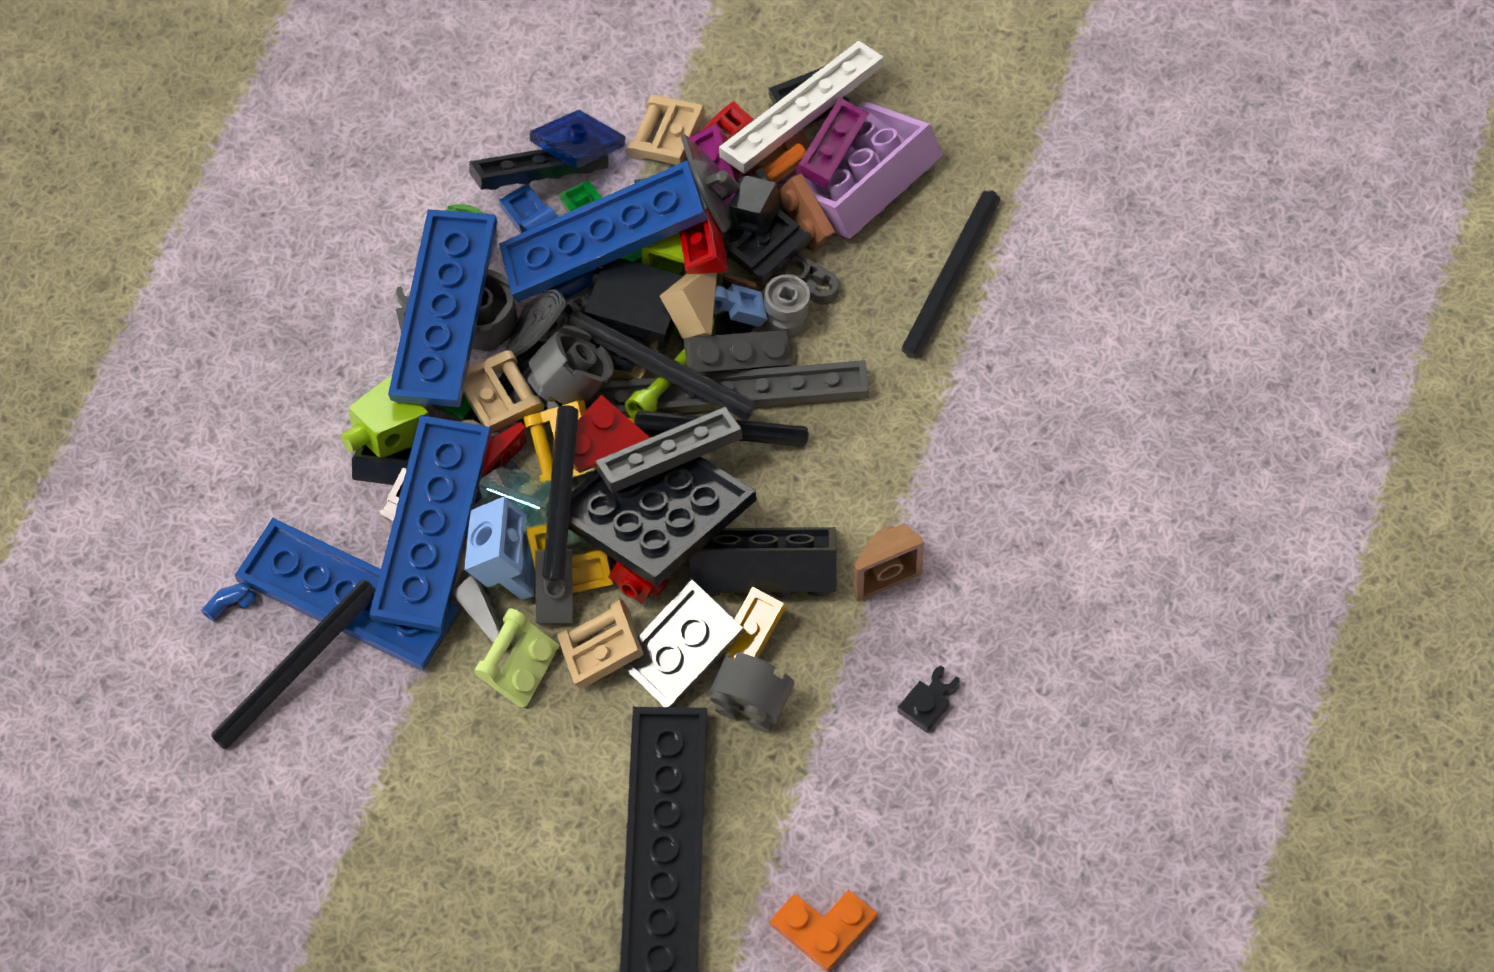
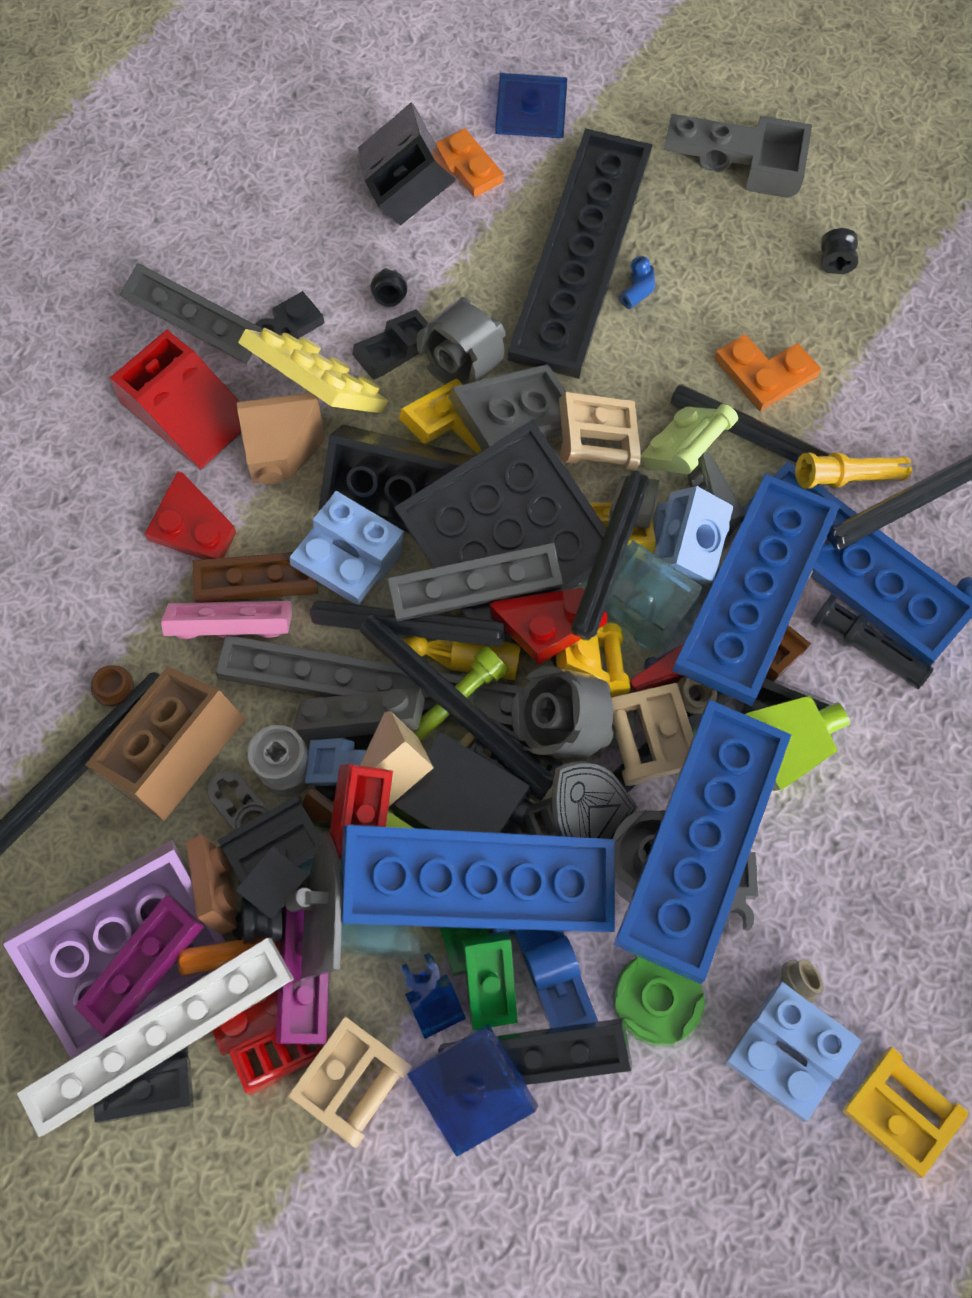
camera: 170 degrees left, 5 degrees up
(275, 197) = (895, 1122): none -> yellow plate
(341, 530) = (855, 632): none -> black pin
(355, 265) = (802, 978): none -> dark tan plate
(356, 219) = (807, 1035): none -> light blue brick
(372, 659) = (839, 469): none -> yellow pin
(399, 913) = (839, 251): none -> black wheel
(452, 699) = (750, 427): none -> black axle
(454, 758) = (765, 379): none -> orange plate
(594, 829) = (642, 282): none -> blue arm
(616, 182) = (432, 998): none -> clear blue plate
(792, 481) = (348, 548): none -> light blue brick
(820, 700) = (392, 347): none -> black slope
(844, 754) = (389, 287): none -> black plate
(865, 448) = (249, 578): none -> reddish brown plate
(872, 611) = (312, 371): none -> light yellow plate
(874, 407) = (227, 618): none -> bright pink plate
(875, 881) = (404, 166): none -> black slope
(883, 299) = (166, 741): none -> medium nougat slope
(941, 484) = (190, 522): none -> red wing
(947, 338) = (111, 685): none -> reddish brown plate
(992, 578) = (179, 399): none -> red slope
(1023, 673) = (188, 311): none -> dark grey plate

